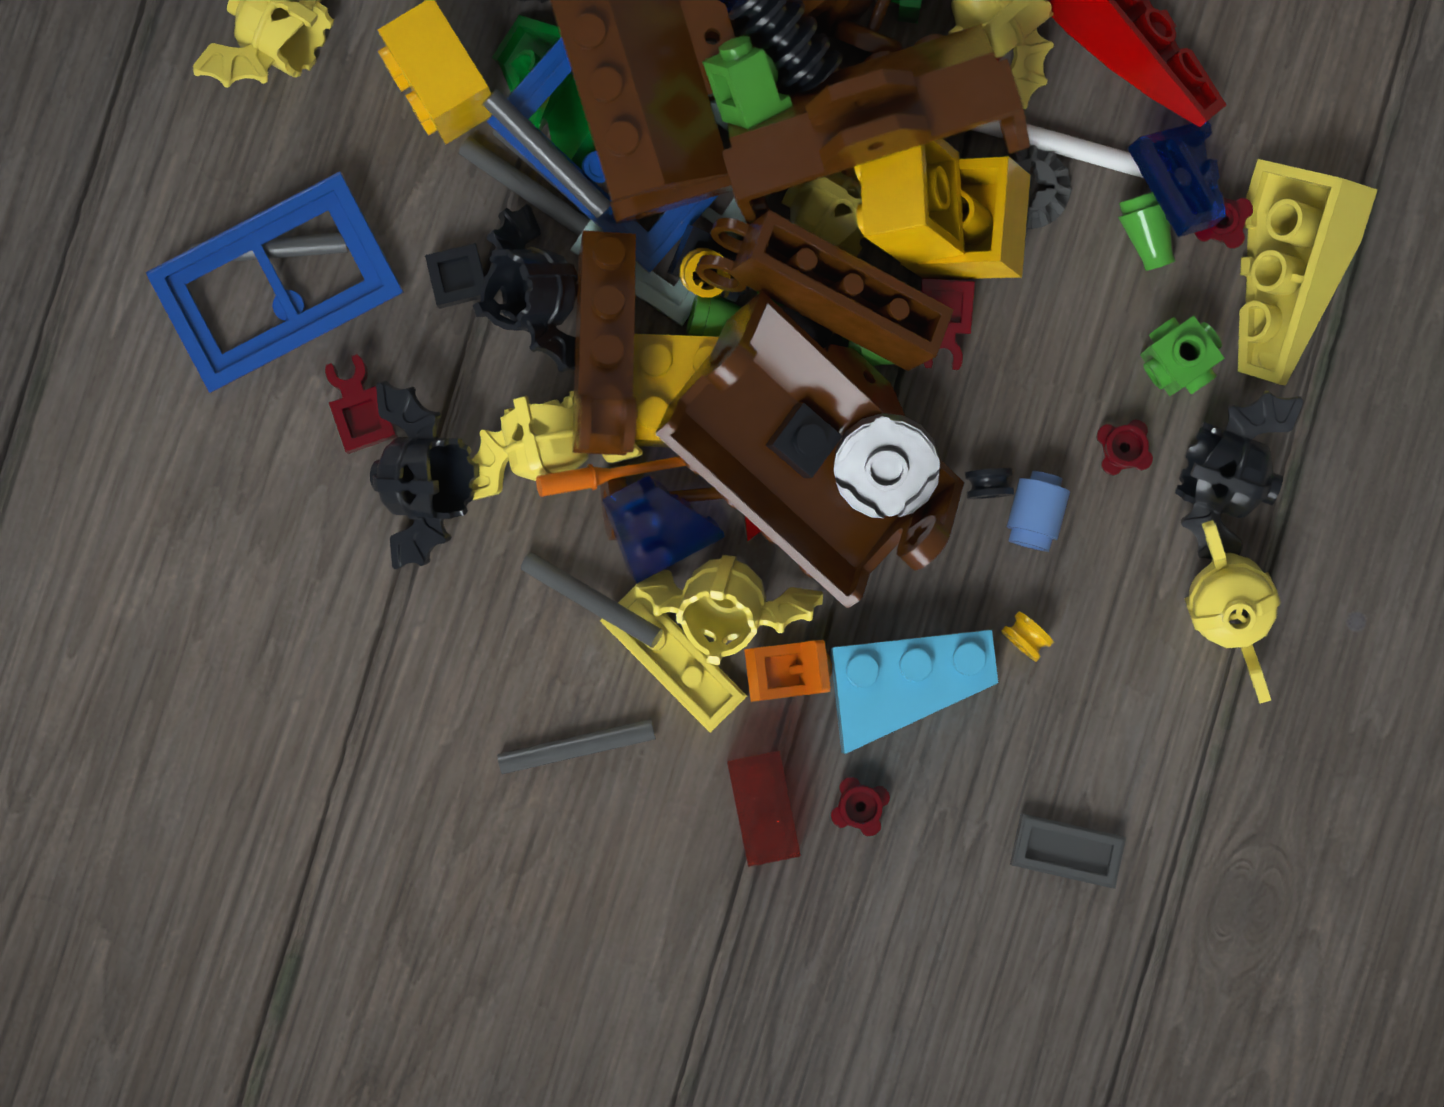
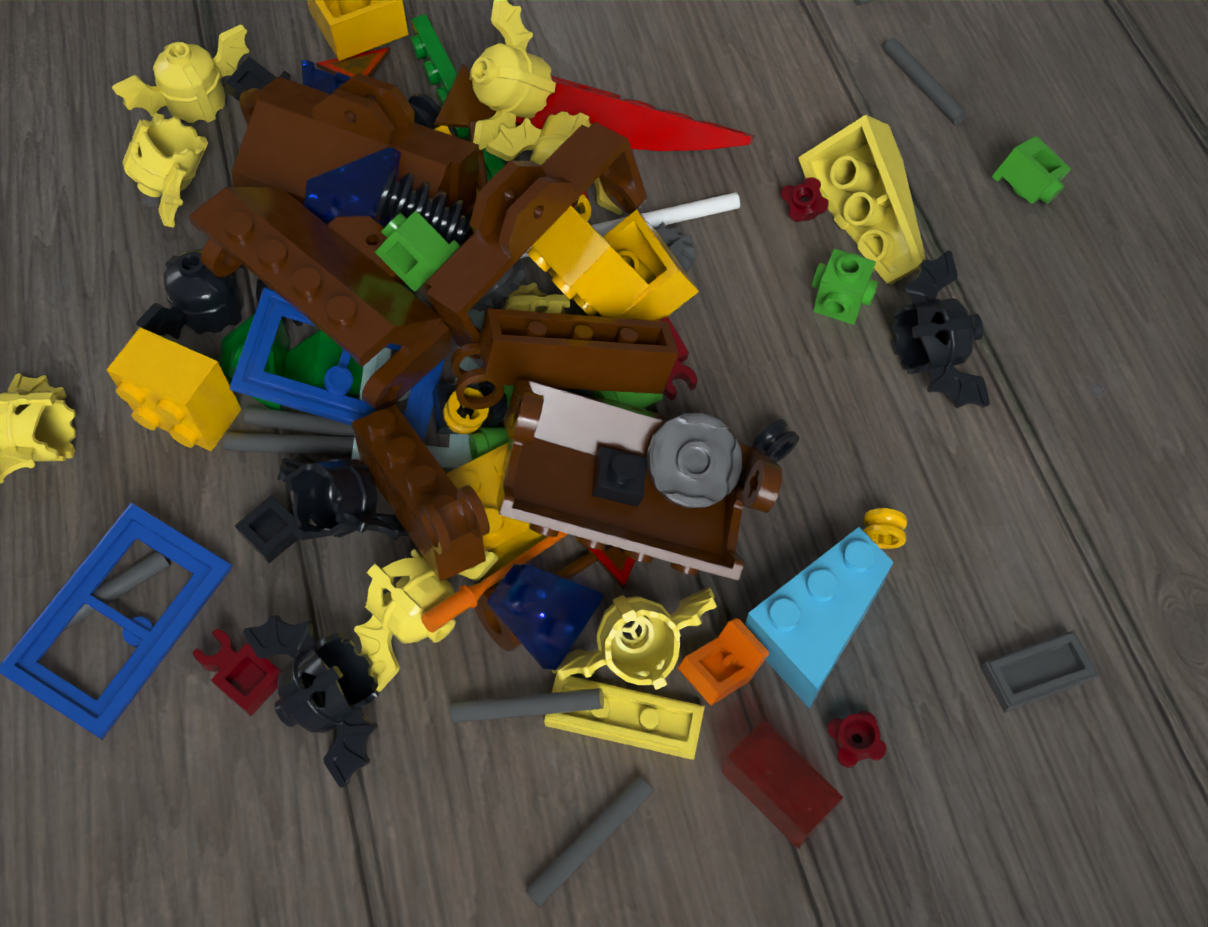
camera: 30 degrees left, 25 degrees down
(546, 153) = (290, 385): dark grey bar -> none
(1037, 511) = (825, 439): medium blue brick -> none
(1135, 436) = (853, 357): dark red plate -> none
(1148, 230) = (759, 229): bright green cone -> none
(1182, 176) = (771, 186): clear blue wing -> none
(1231, 585) = (1013, 411): light yellow helmet -> none

